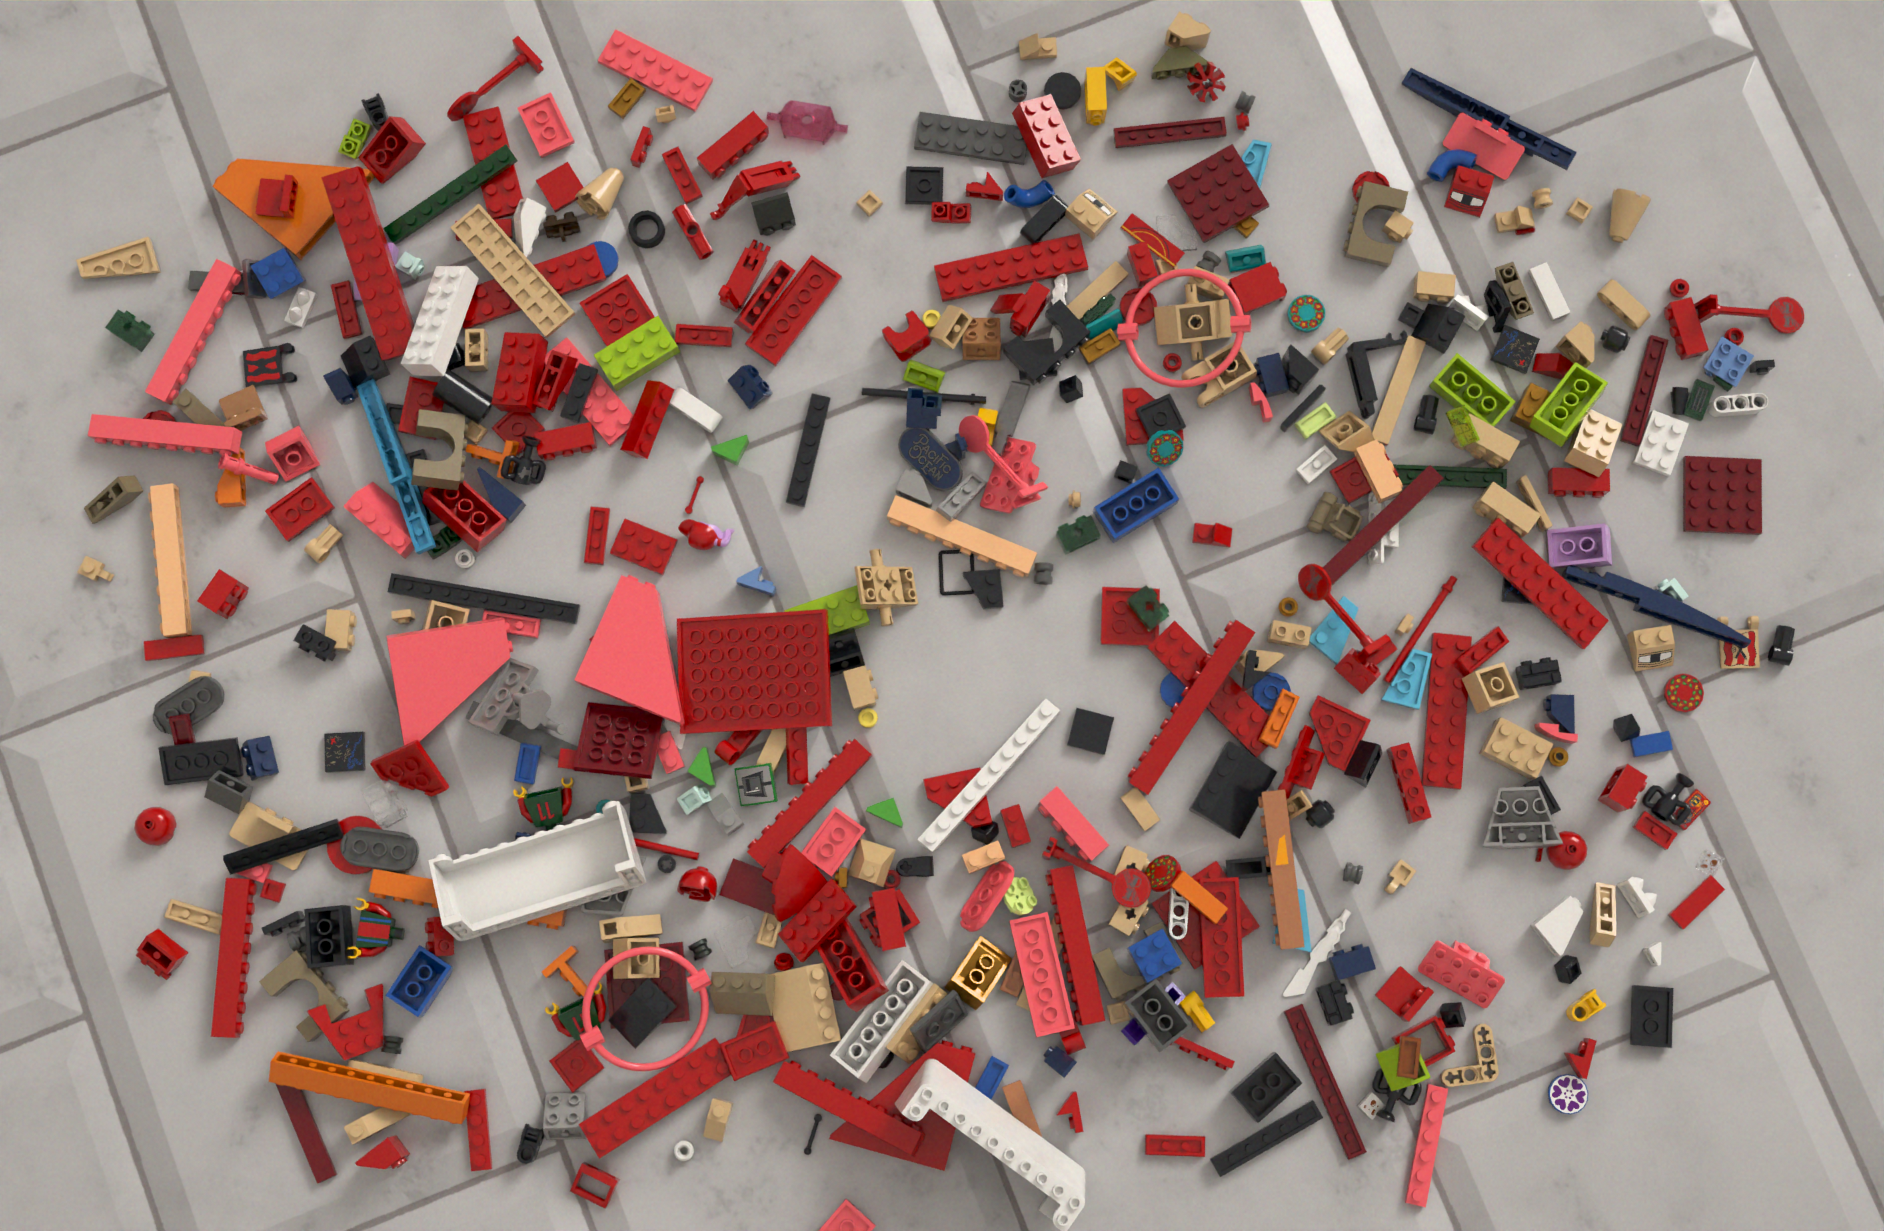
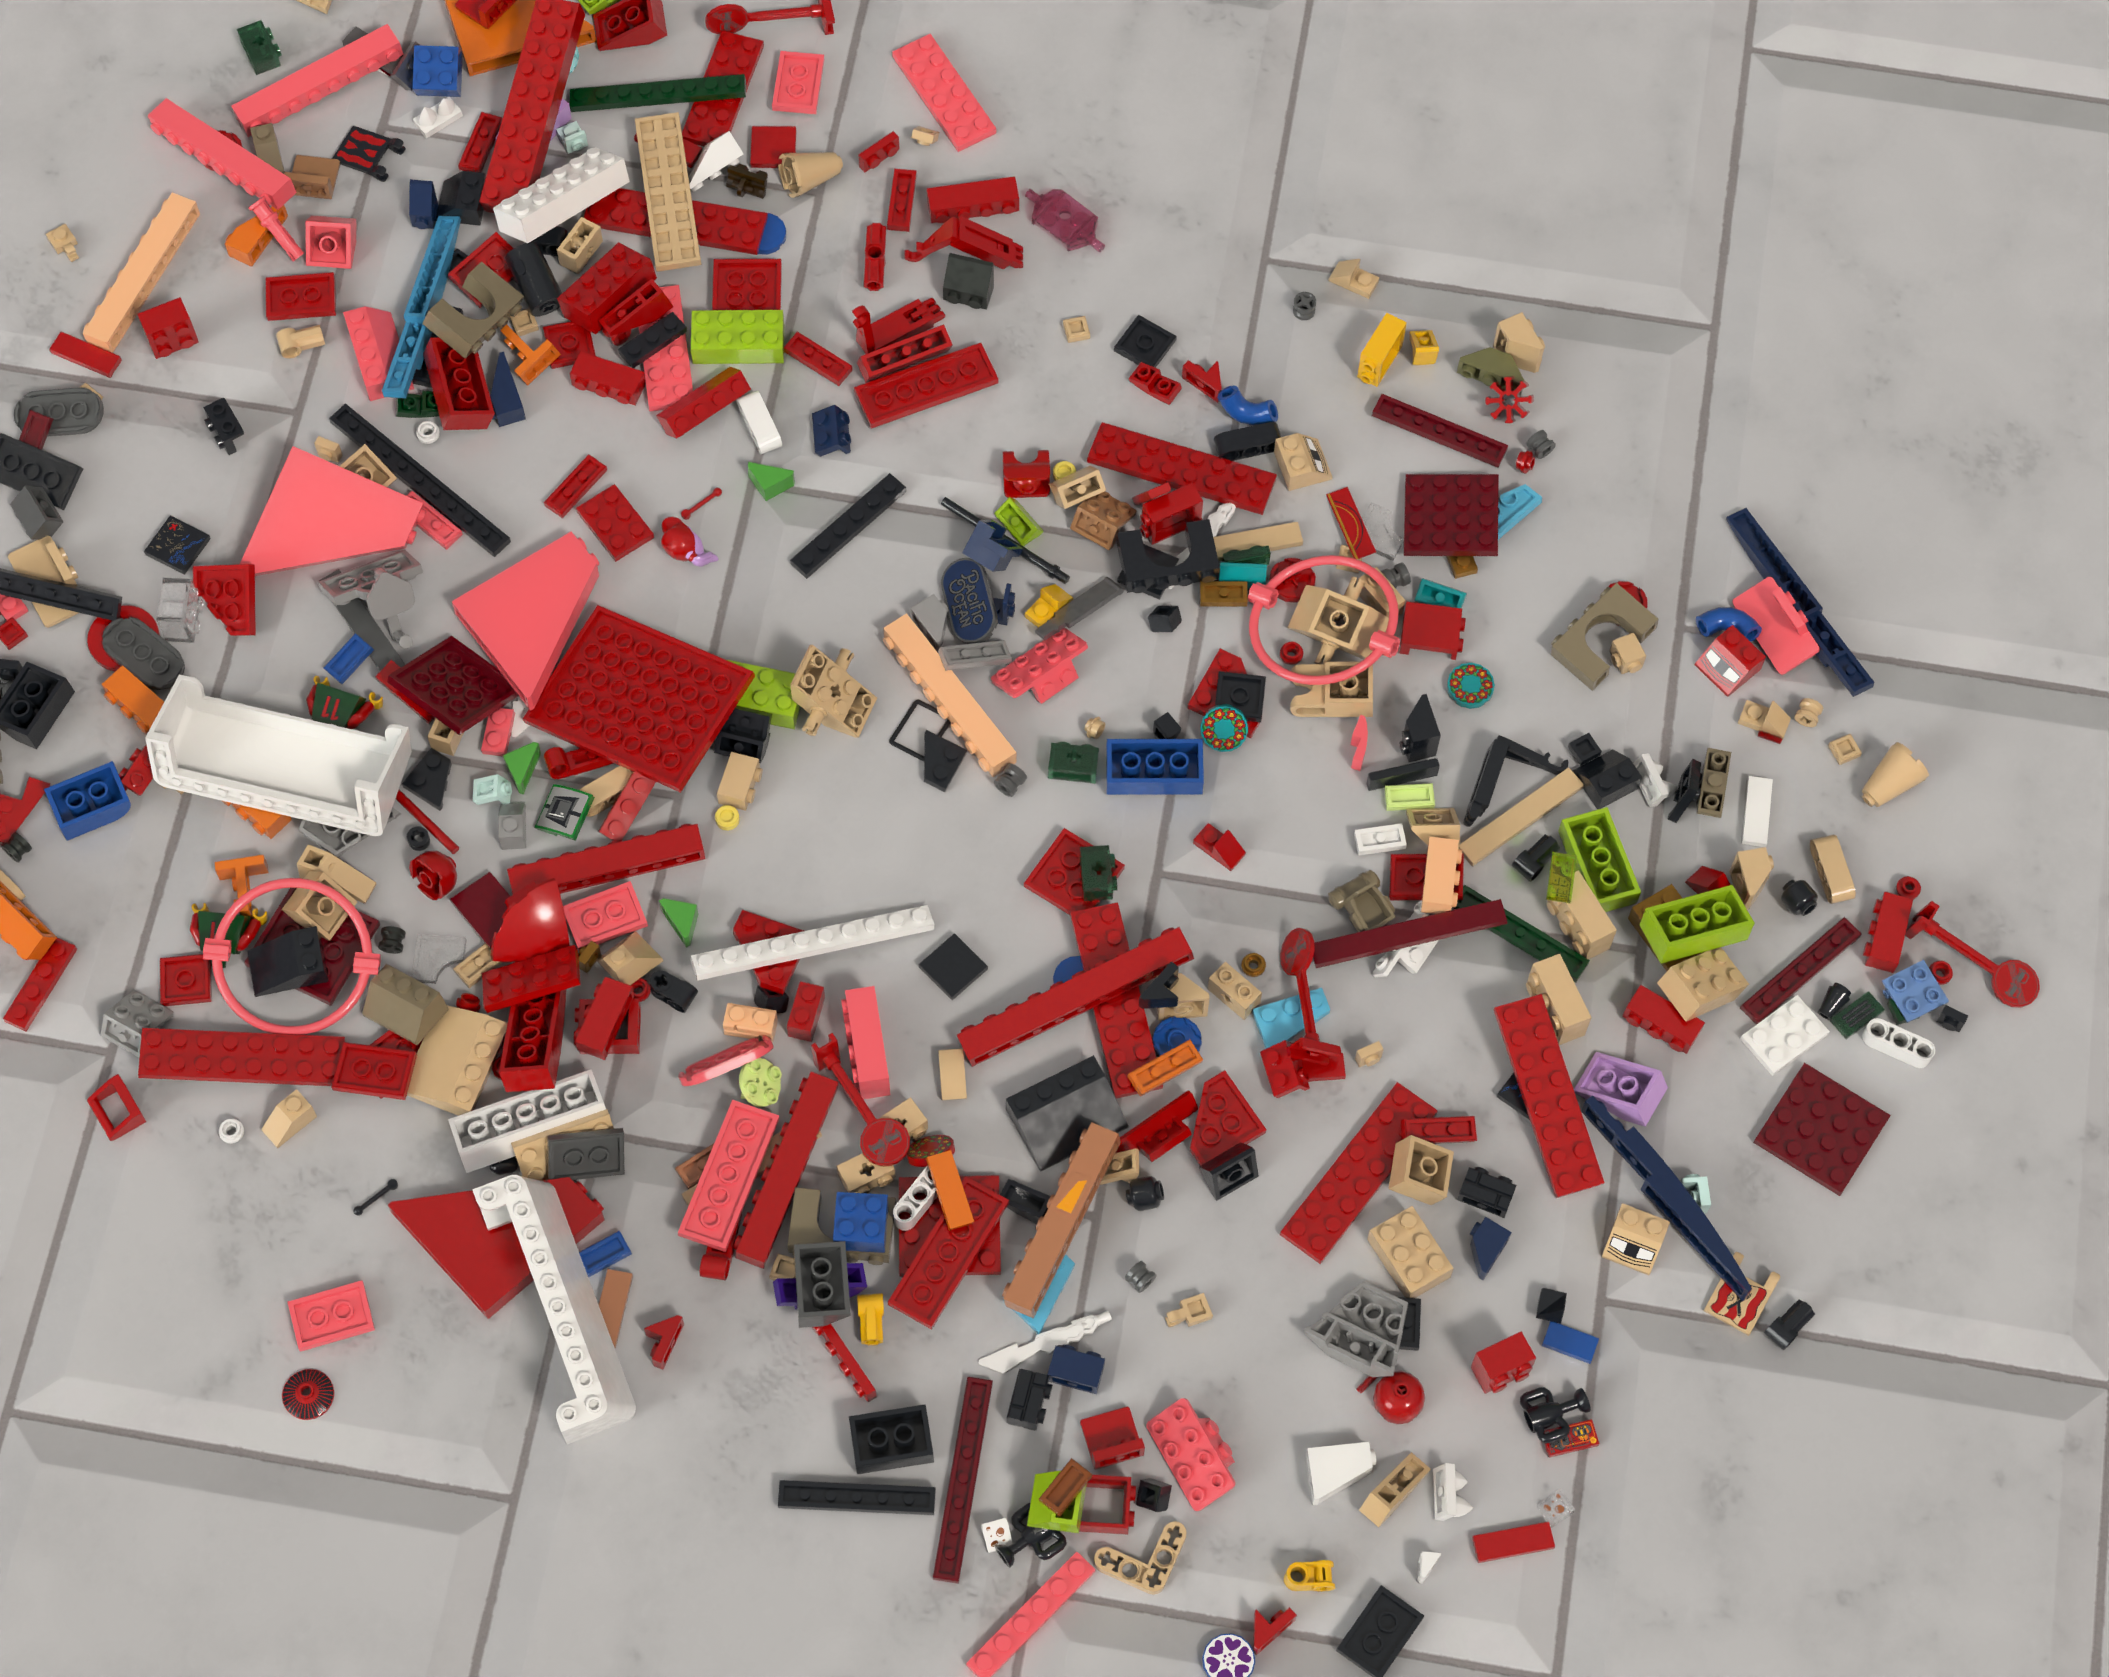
camera: 30 degrees right, 15 degrees down
(113, 497) = (133, 185): dark tan slope -> none
(259, 757) = (91, 501): dark blue bracket -> none
(340, 628) = (259, 425): tan brick -> none
(375, 930) = (81, 727): torso -> none
(524, 465) = (546, 378): black piece -> none
(530, 1142) = (81, 1025): black piece -> none
(626, 98) = (896, 101): pearl gold plate -> none
(645, 215) = (830, 215): black tyre -> none
(751, 581) = (703, 616): medium blue slope -> none
(849, 1108) = (430, 1184): red brick -> none
(970, 138) = (1226, 325): dark grey plate -> none
(977, 440) = (1028, 607): coral piece -> none
(978, 973) = (663, 1136): pearl gold slope -> none
(1046, 136) = (1303, 361): brick -> none
(1059, 1060) = (686, 1277): dark blue slope -> none
(1064, 89) = (1351, 331): black tile -> none
(1141, 263) = (1323, 535): red brick -> none
(1175, 1145) = (752, 1445): red tile -> none
(1271, 375) = (1390, 723): dark blue brick -> none
(1327, 348) = (1468, 731): tan piece -> none
(1409, 783) = (1265, 1219): red brick -> none
(1410, 681) = (1337, 1117): medium azure wing -> none
(1434, 287) = (1628, 734): tan brick -> none
(1446, 589) = (1442, 1047): red bar -> none
(1515, 349) = (1680, 848): black tile -> none
(1533, 501) = (1597, 1013): tan tile -> none
(1551, 731) = (1462, 1257): coral slope -> none
(1552, 756) = (1451, 1299): pearl gold plate -> none
(1567, 969) = (1316, 1525): black slope -> none
(1655, 830) = (1514, 1435): red plate -> none
(1683, 693) = (1643, 1310): tile -> none

